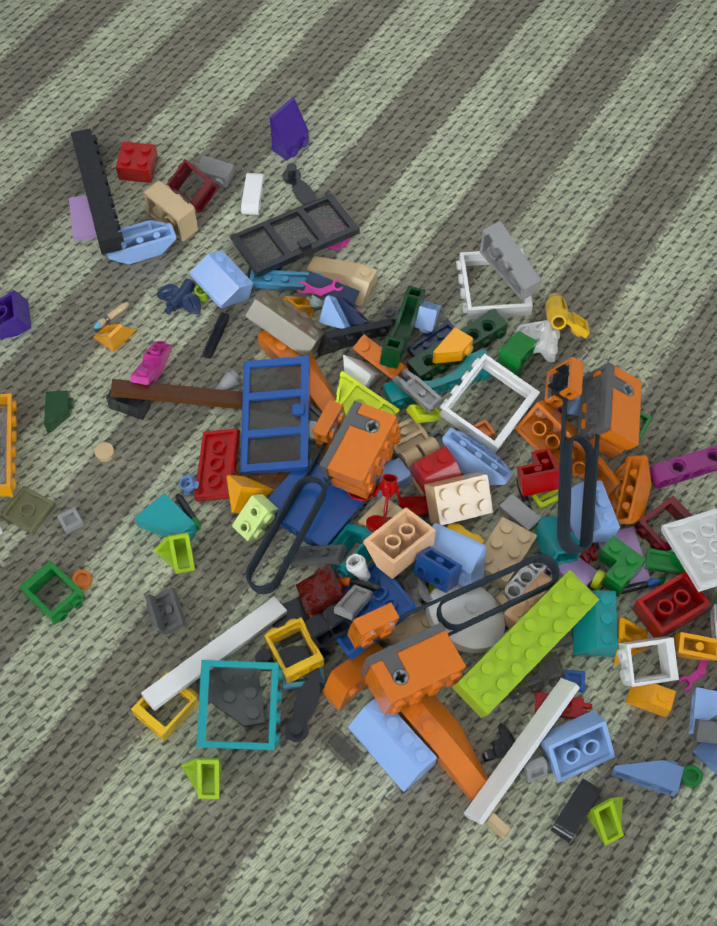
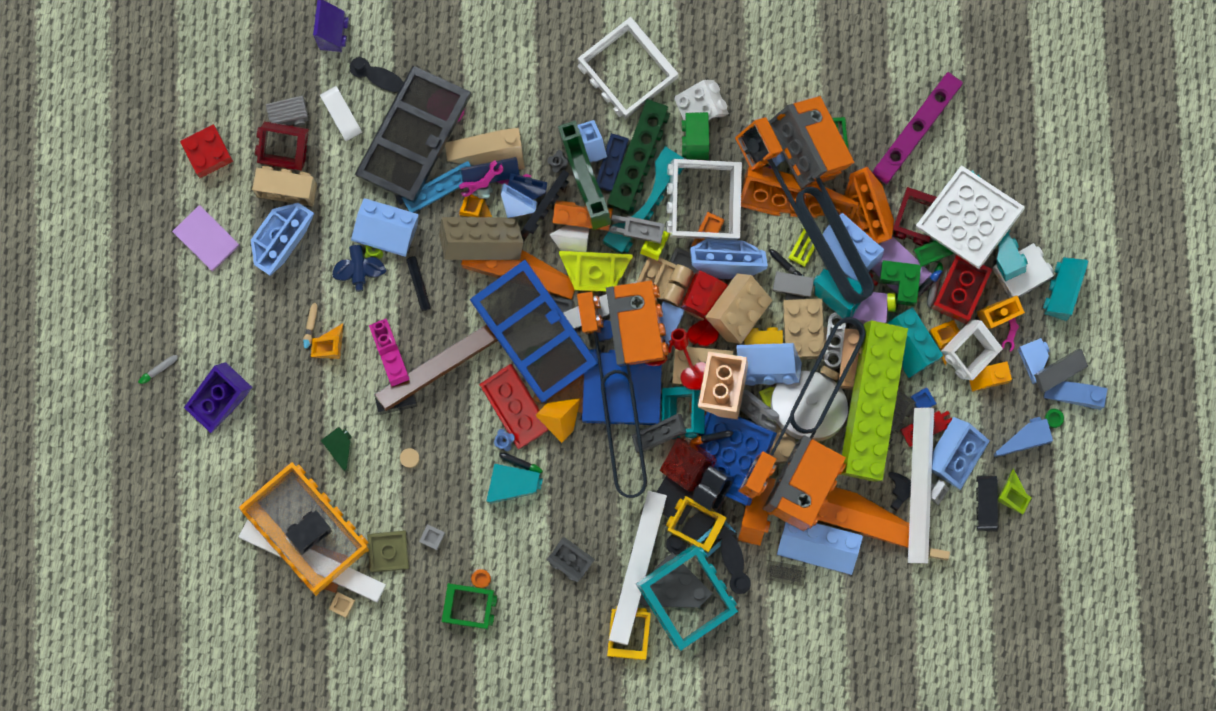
camera: 30 degrees left, 20 degrees up
(97, 191) = (199, 211): black brick -> none
(177, 552) = (542, 506): lime slope -> none
(204, 776) = (698, 666): lime slope -> none
(229, 381) = (465, 323): light grey cone -> none
(255, 517) = (585, 434): yellowish green brick -> none
(353, 602) = (721, 459): light grey tile -> none
(357, 565) = (702, 426): white cone -> none
(437, 569) = (766, 386): blue brick -> none
(453, 347) = (641, 165): light orange slope -> none
(509, 261) = (633, 45): light grey wedge -> none
(540, 475) = (791, 241): red brick -> none
(558, 316) = (713, 70): yellow plate -> none

